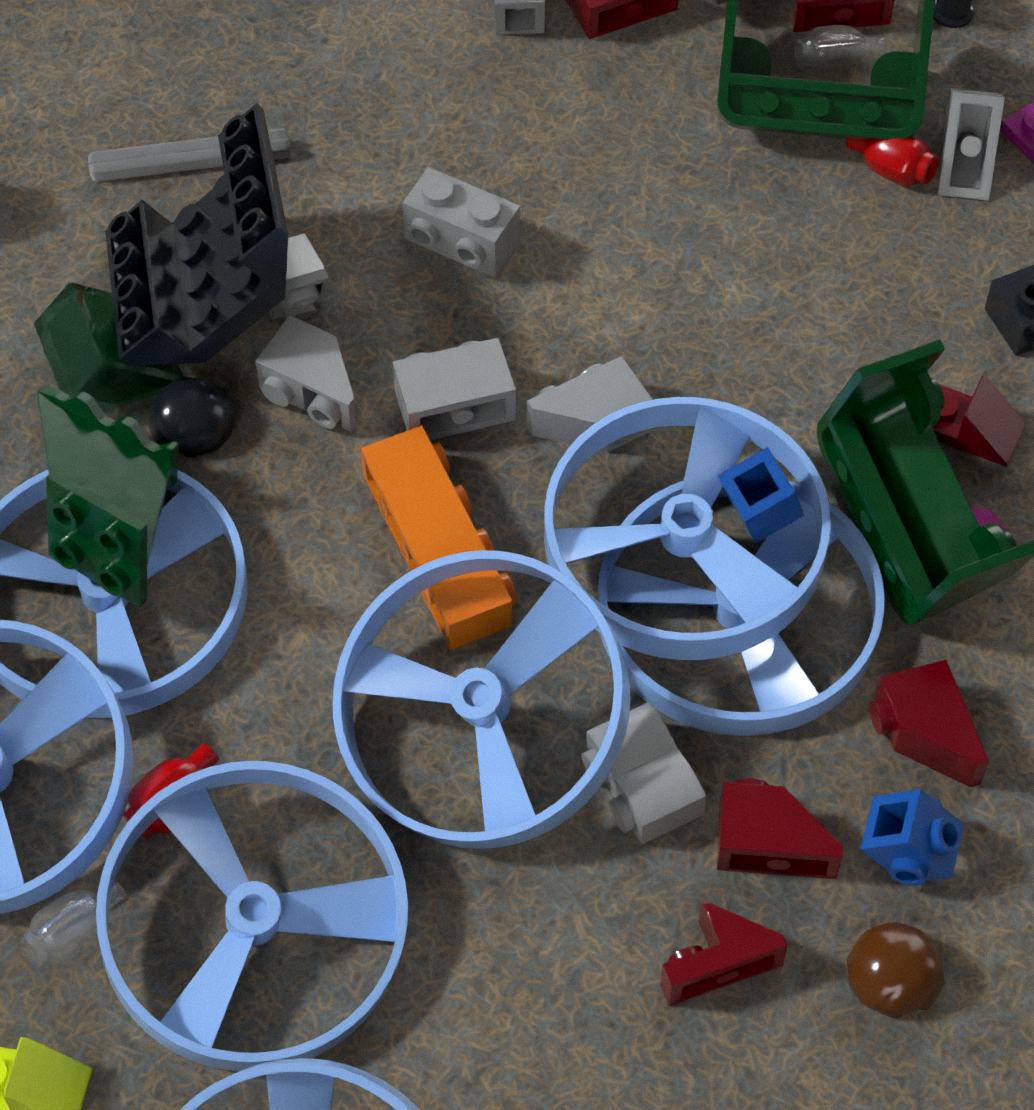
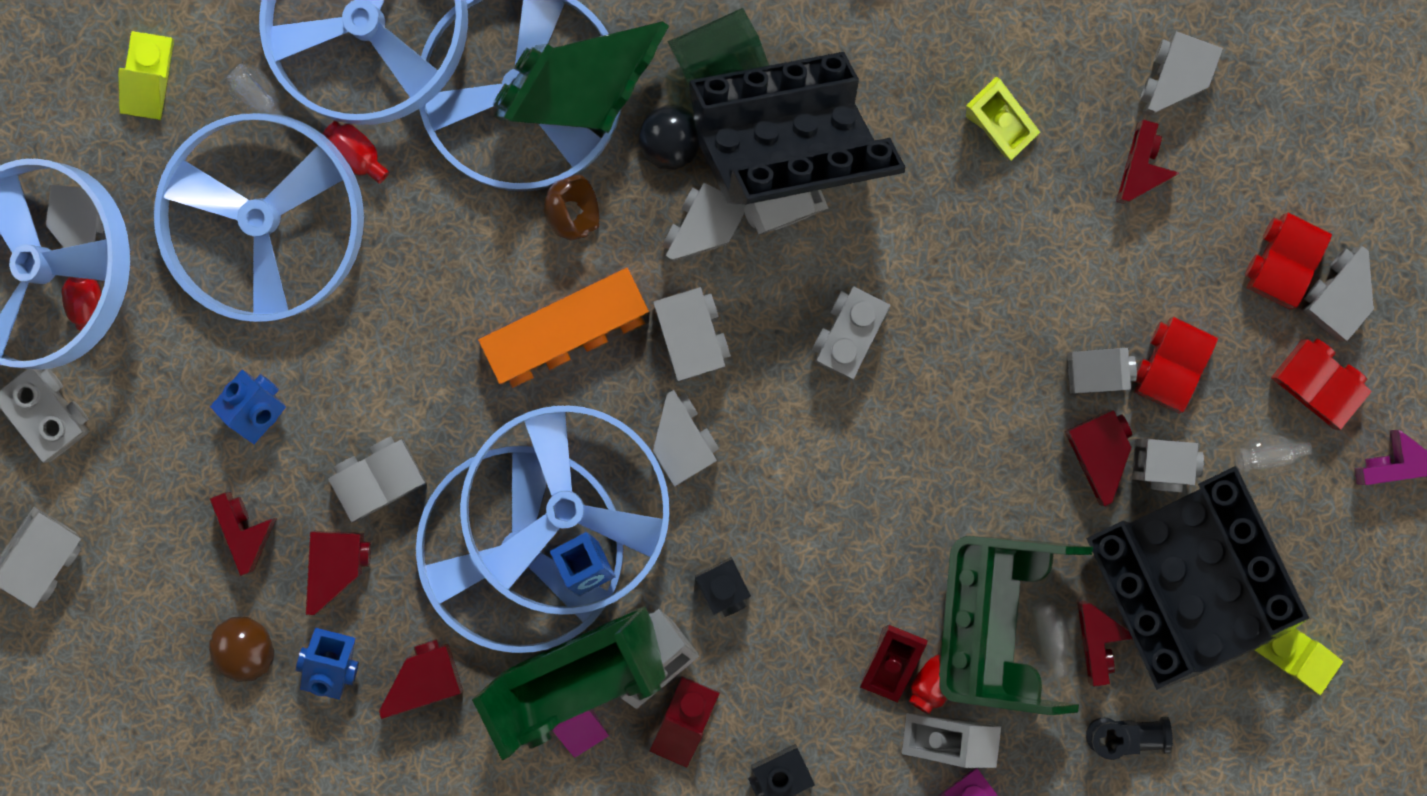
camera: 90 degrees right, 30 degrees up
(170, 157) = (925, 110): light grey axle -> none
(201, 71) = (1002, 119): none -> neon yellow slope
(276, 528) = (577, 190): none -> reddish brown hair
(483, 694) = (416, 362): light blue piece -> none
(532, 936) = (249, 405): none -> blue brick
(785, 363) = (723, 587): none -> black brick
(871, 183) = (893, 662): none -> dark red slope

